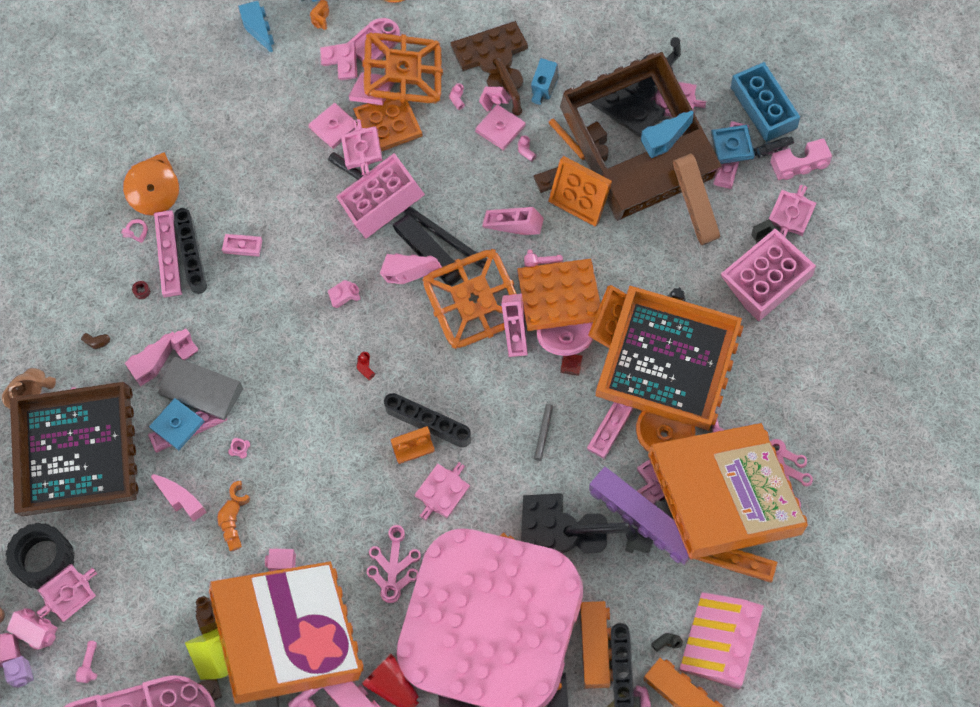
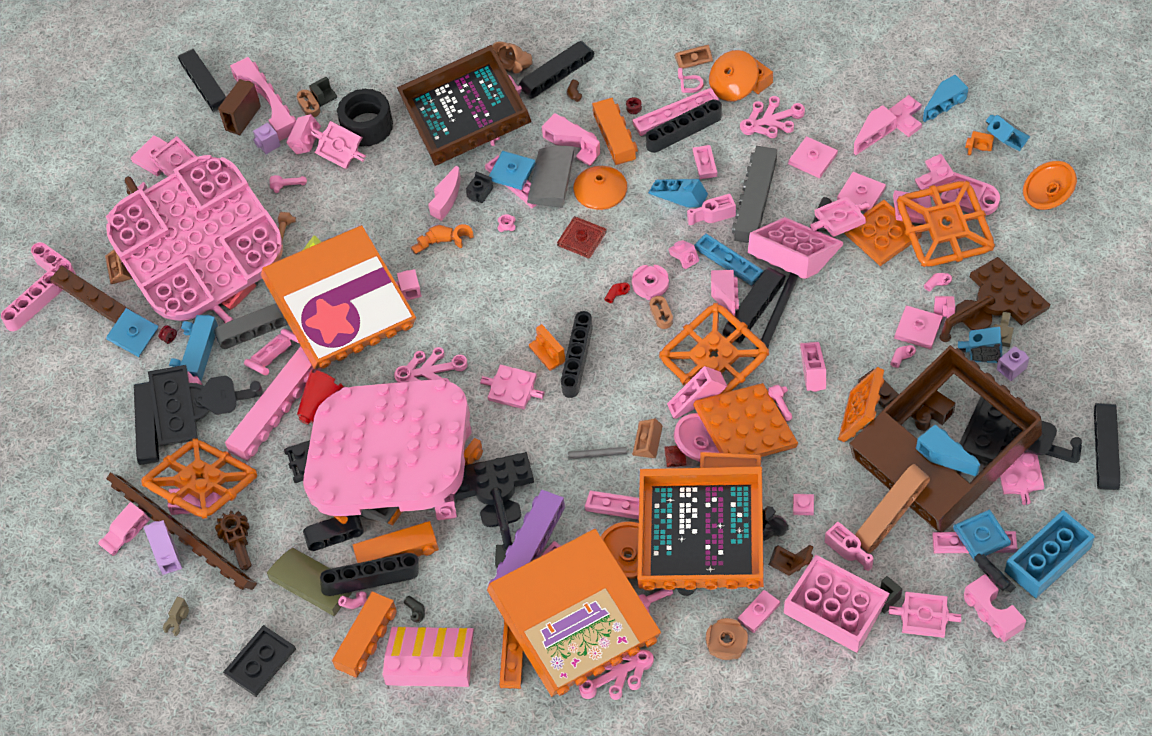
camera: 75 degrees right, 10 degrees down
(60, 349) = (556, 69): none -> black beam
(103, 219) = (693, 56): none -> nougat slope
(139, 674) = (284, 220): none -> nougat piece
(167, 315) = (614, 131): none -> orange brick
(177, 459) = (479, 187): none -> black brick
(215, 174) = (751, 125): none -> bright pink plant
(231, 358) = (600, 187): none -> orange dish
(260, 68) = (903, 111): none -> bright pink plate
(265, 90) = (877, 125): none -> bright pink slope
(270, 275) = (680, 191): none -> dark azure slope
(275, 152) = (813, 157): none -> bright pink plate
(285, 381) = (581, 237): none -> clear red plate
(301, 212) = (756, 192): none -> dark grey brick
(306, 248) = (713, 210): none -> bright pink piece
(366, 257) = (728, 259): none -> dark azure plate
(367, 322) = (645, 273): none -> bright pink plate
(404, 333) = (665, 310): none -> nougat beam
(528, 66) = (1006, 332): none -> dark tan plate
(542, 384) = (647, 438): none -> nougat slope
(567, 67) = (1013, 363): none -> lavender brick
(654, 273) = (803, 504): none -> bright pink plate
(669, 27) = (1106, 446): none -> black beam
(703, 253) = (847, 545): none -> bright pink piece
(716, 292) = (789, 562): none -> reddish brown bracket
(753, 342) = (758, 611): none -> bright pink plate
(777, 384) = (729, 650): none -> nougat plate

